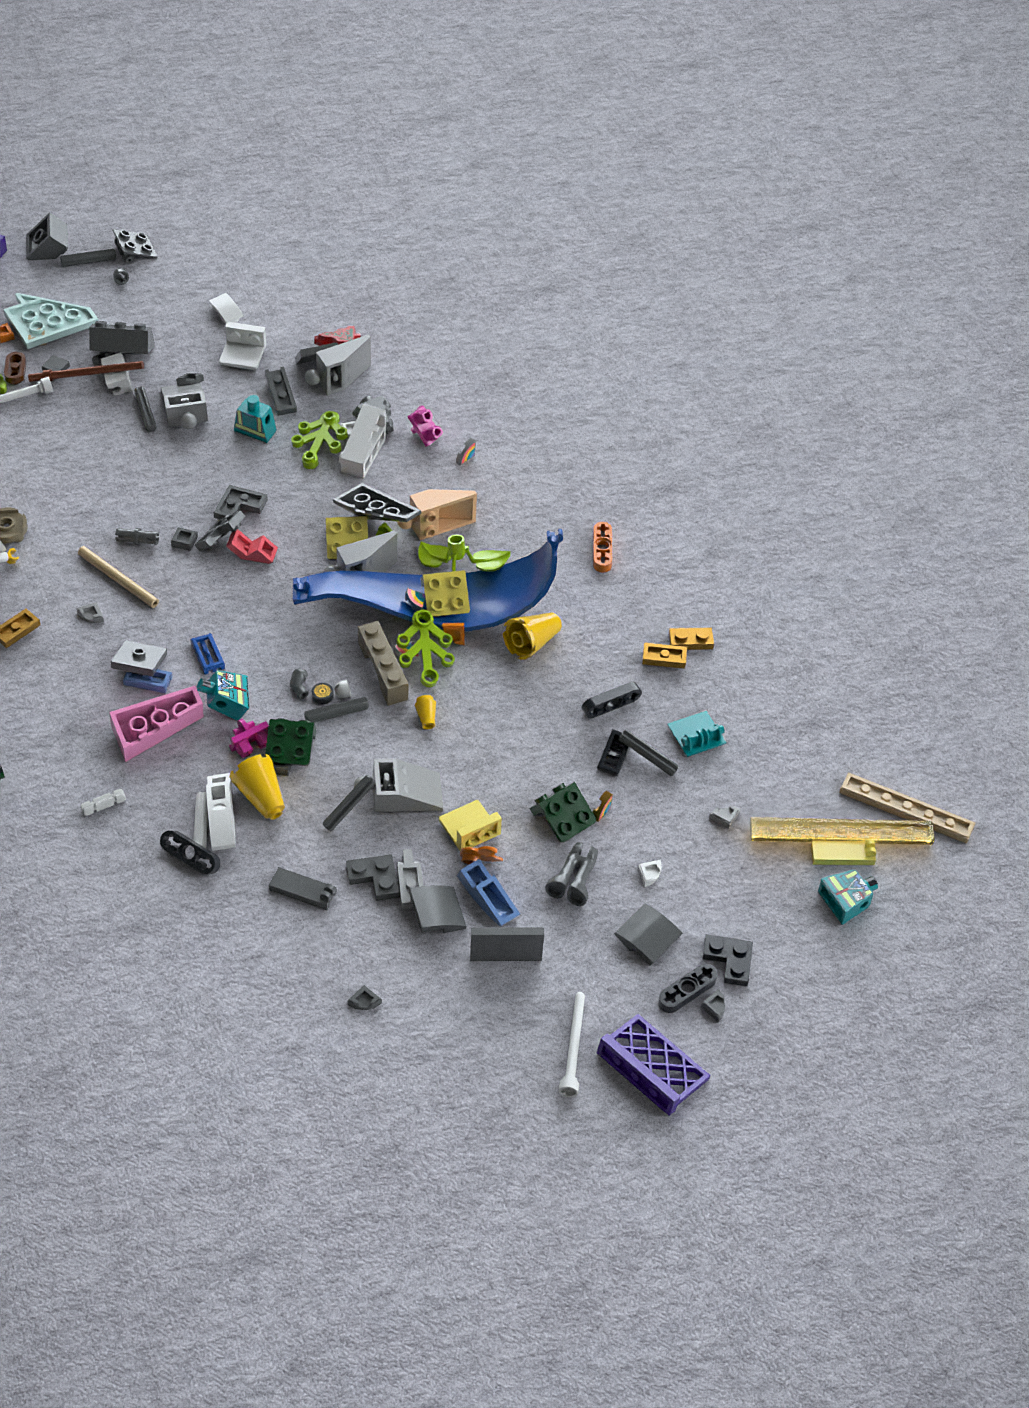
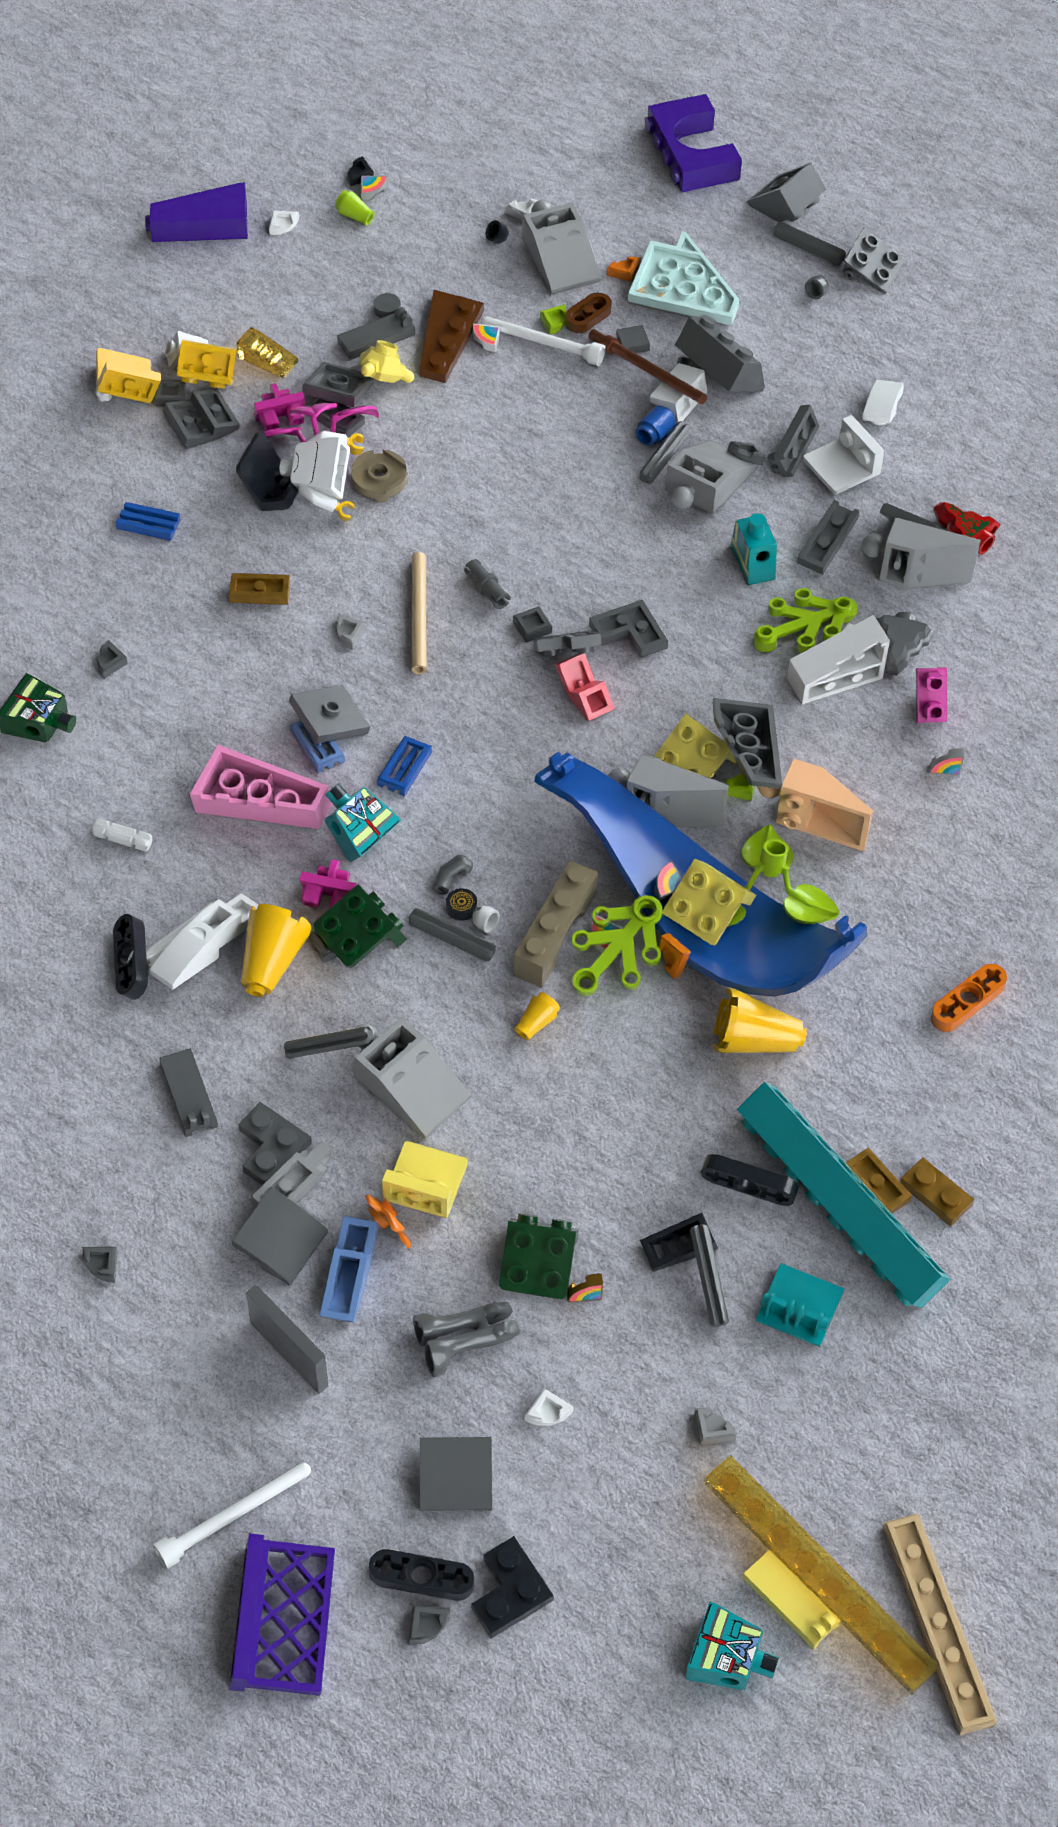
camera: 50 degrees right, 5 degrees up
(125, 398) = (655, 425): none -> blue brick
(213, 369) = (794, 442): none -> dark grey hinge
(659, 670) = (843, 1195): none -> teal brick

